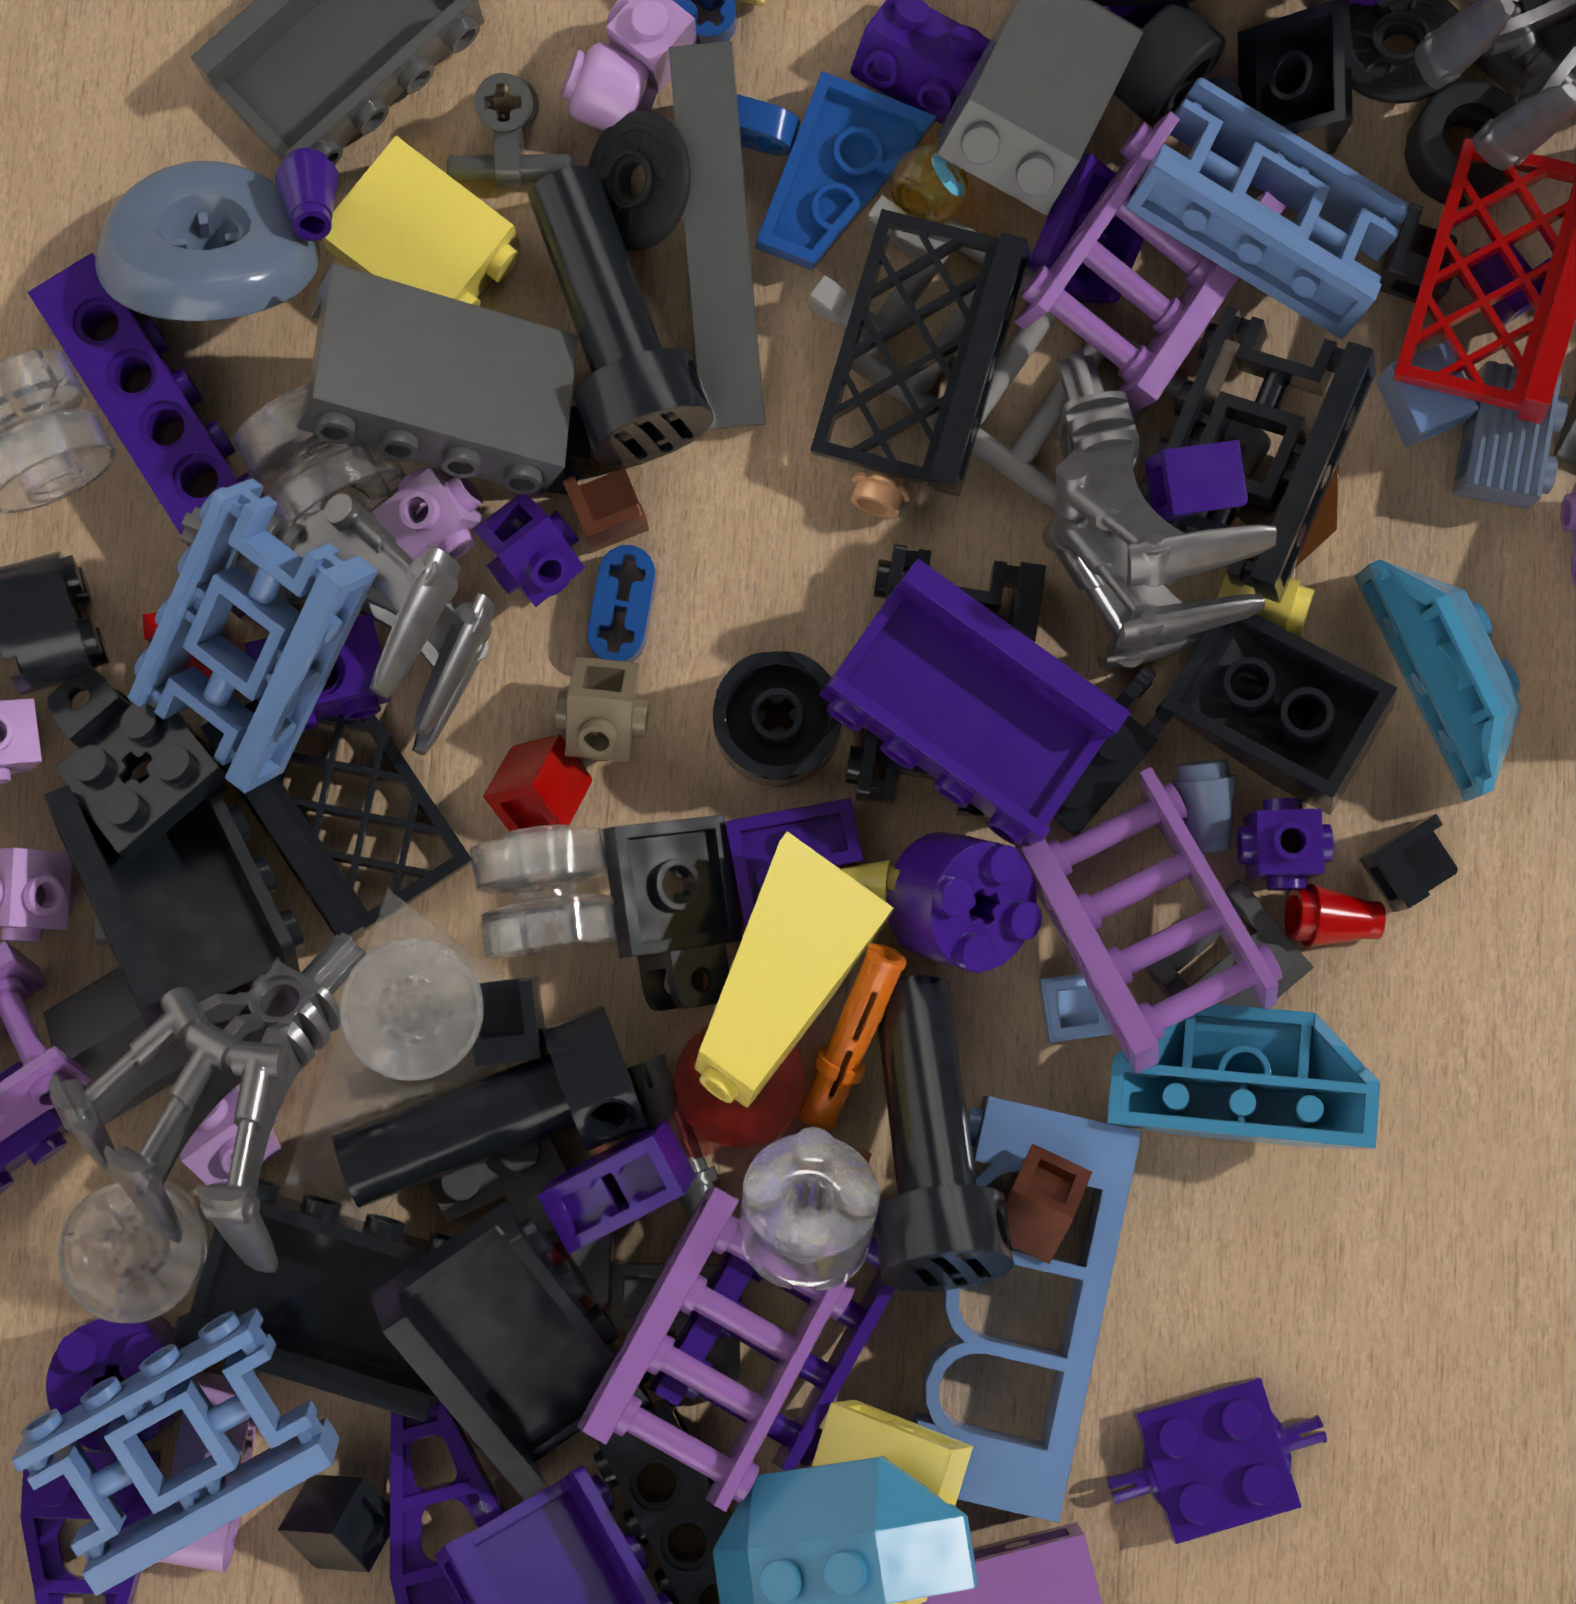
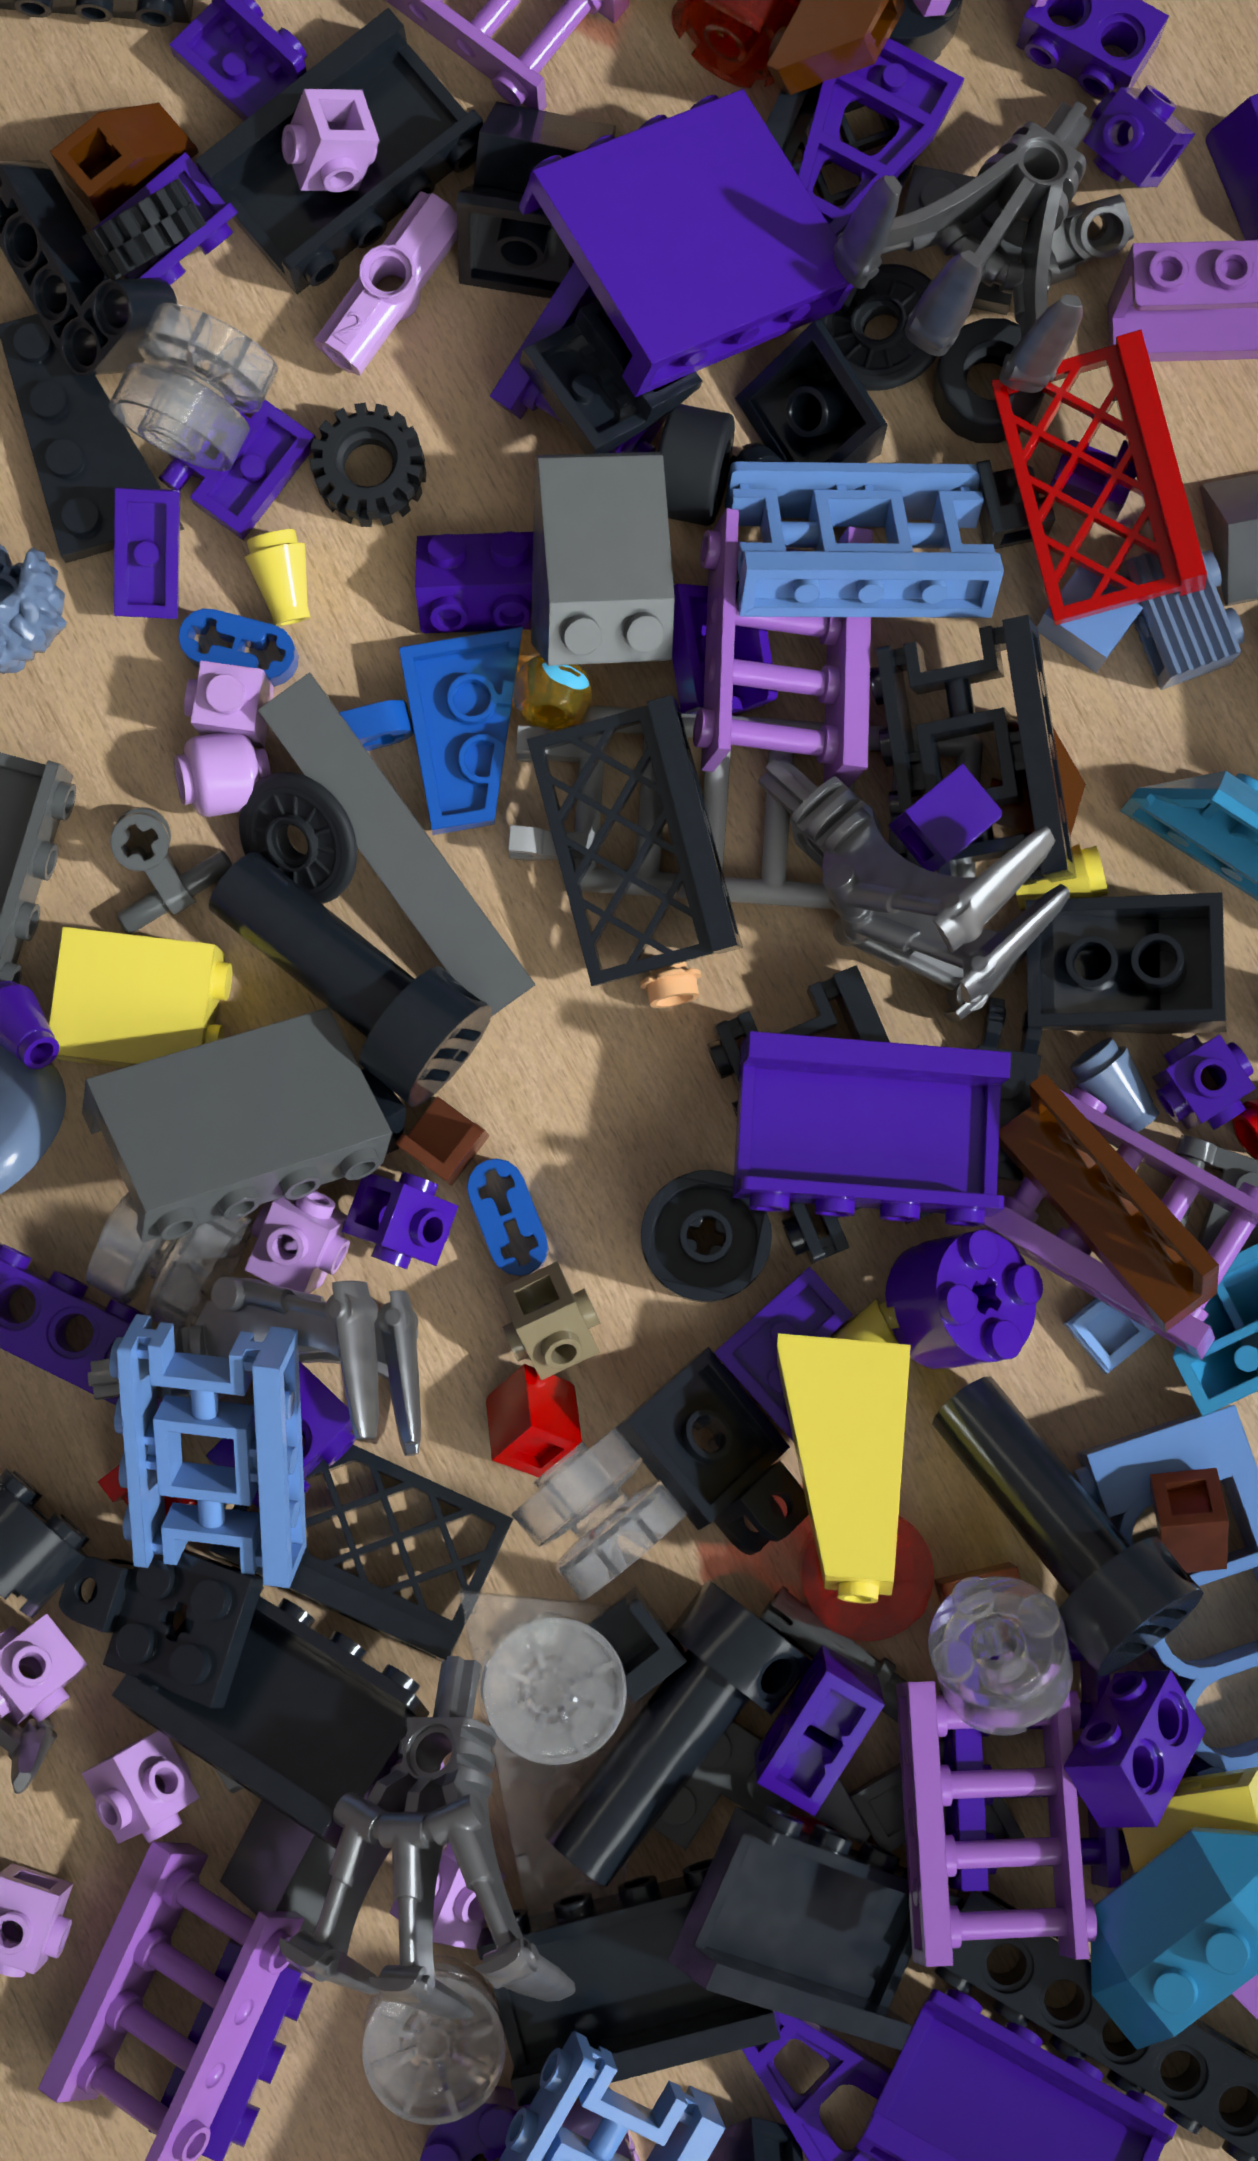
camera: 25 degrees left, 0 degrees up
(842, 1060) = (941, 1499): orange pin -> none
(875, 1363) = (1135, 1749): none -> dark purple brick
(1135, 894) = (1109, 1206): none -> reddish brown fence

